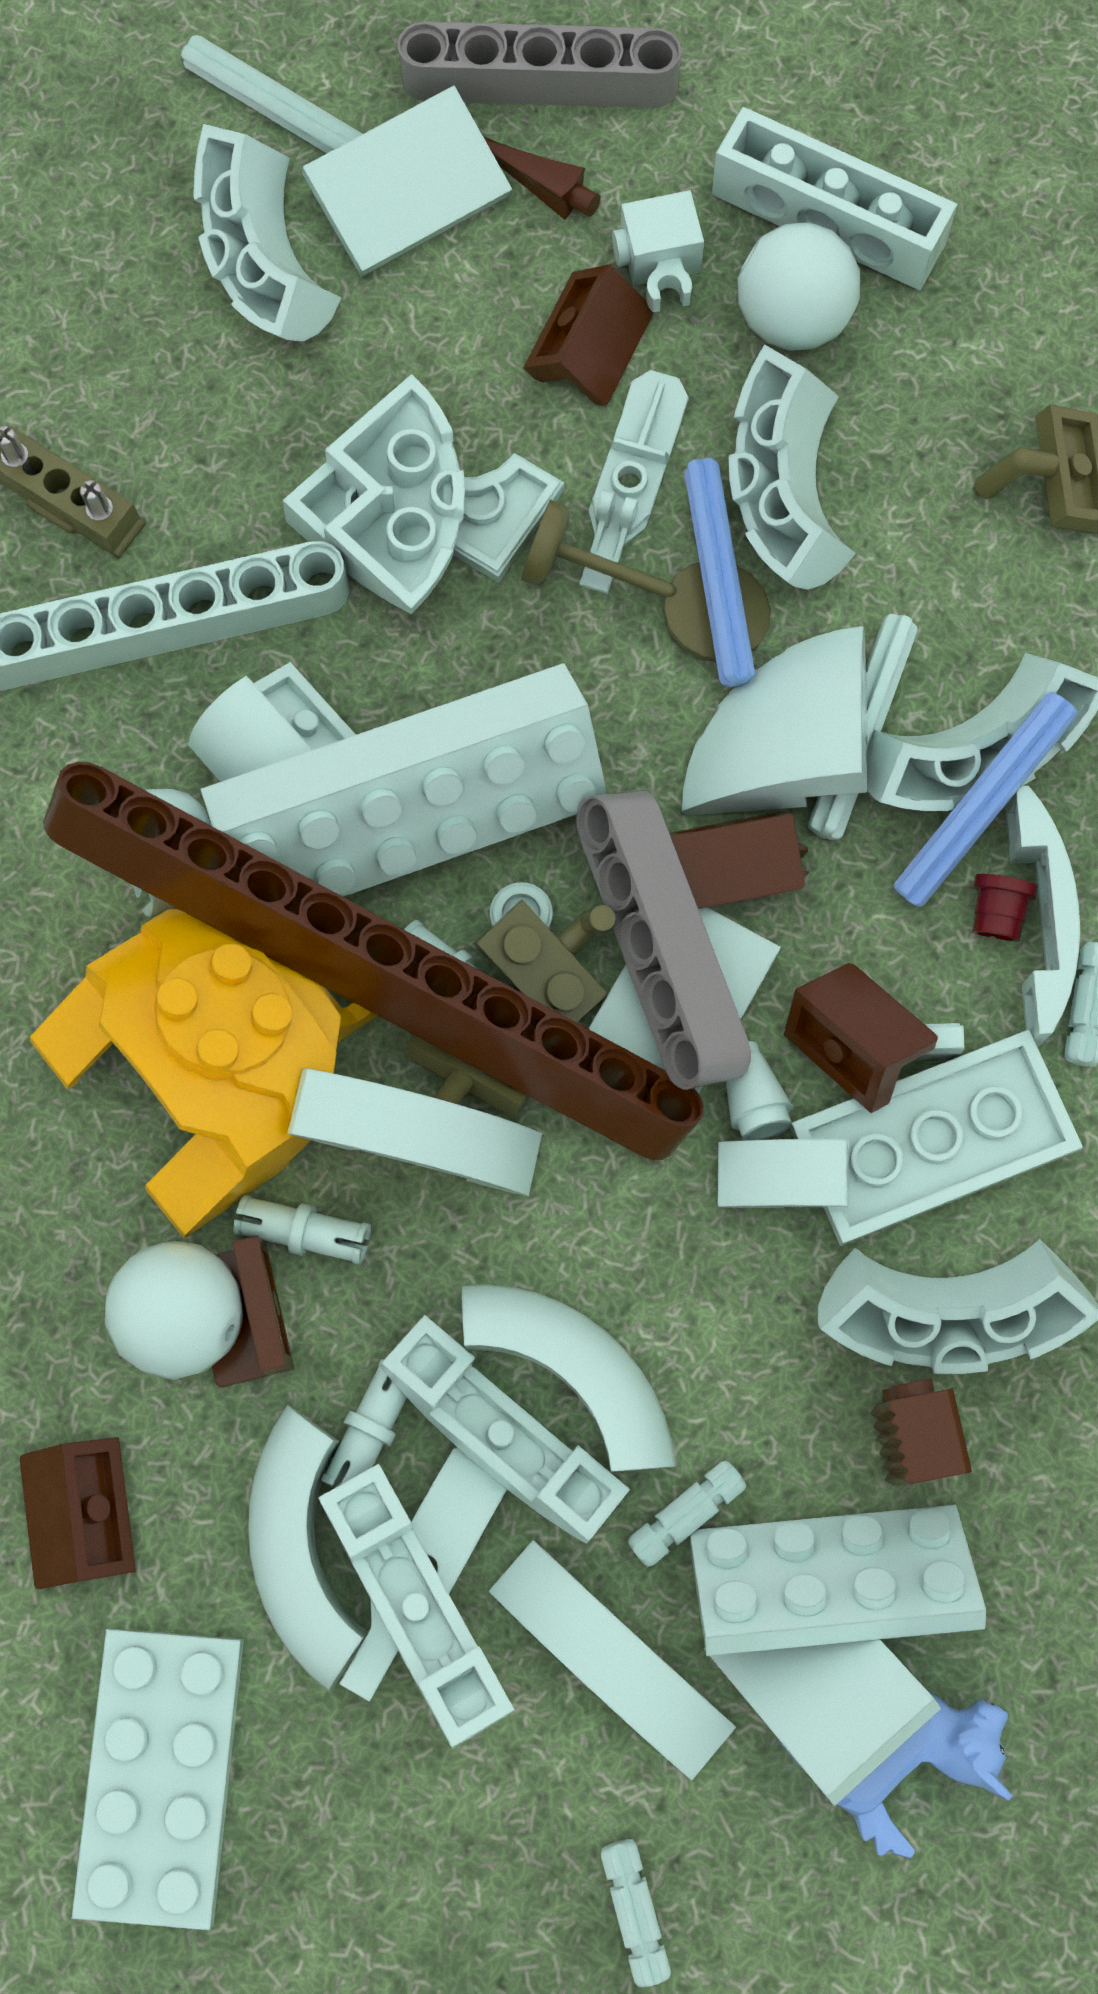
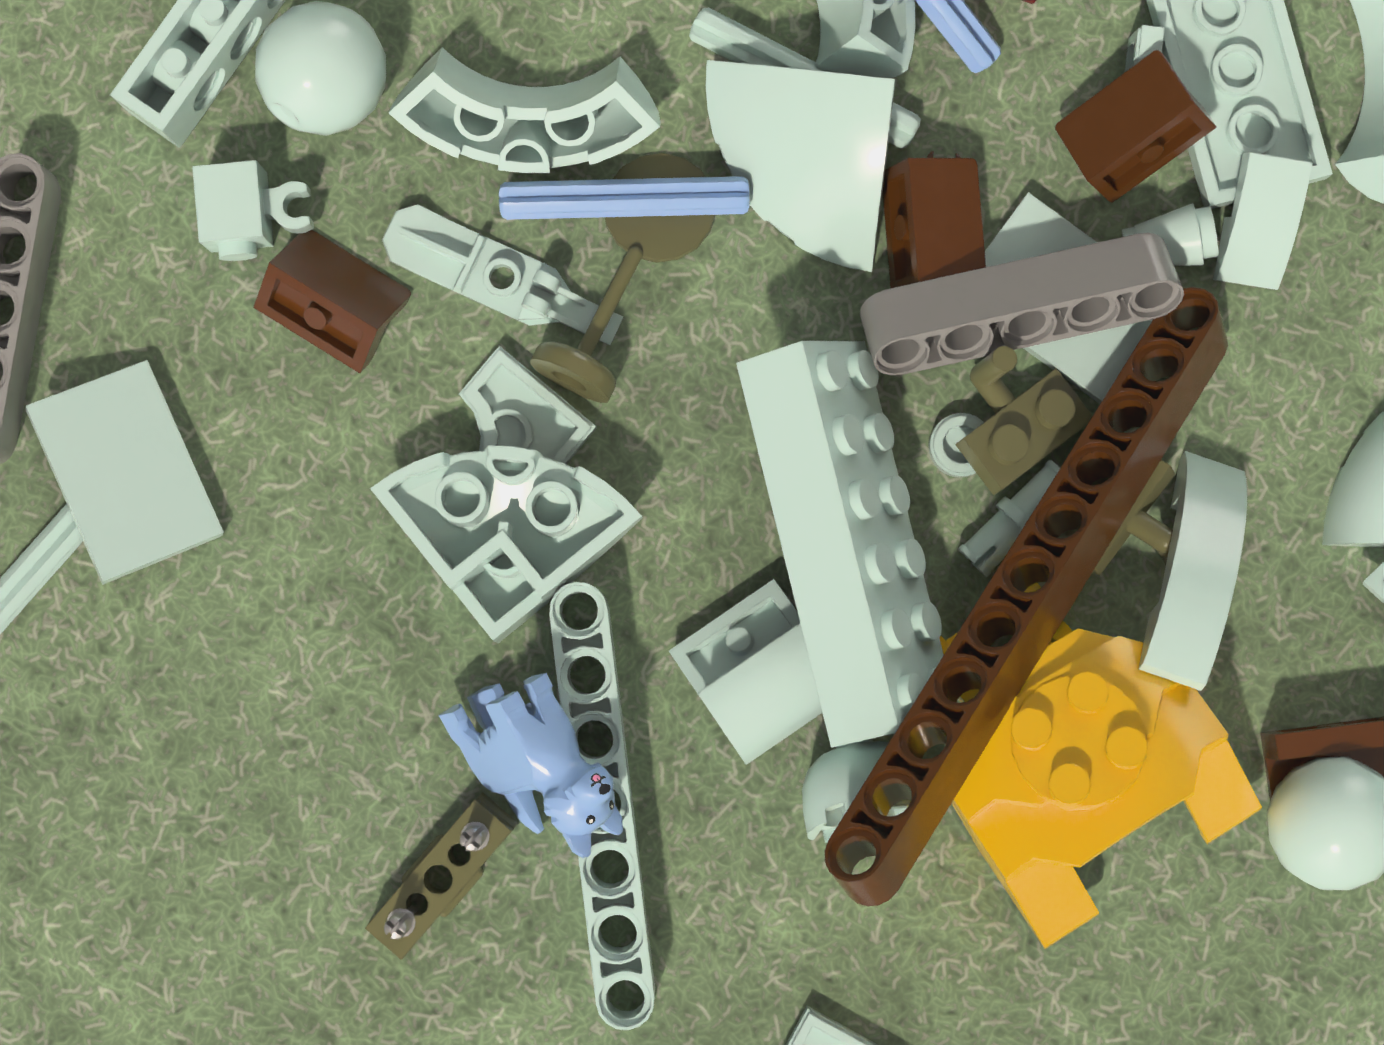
camera: 85 degrees left, 10 degrees up
(172, 540) = (535, 750): none -> light blue animal
(247, 236) = (176, 651): light aqua brick -> none
(302, 1229) = (1260, 692): light aqua pin -> none
(551, 181) = (144, 314): reddish brown piece -> none

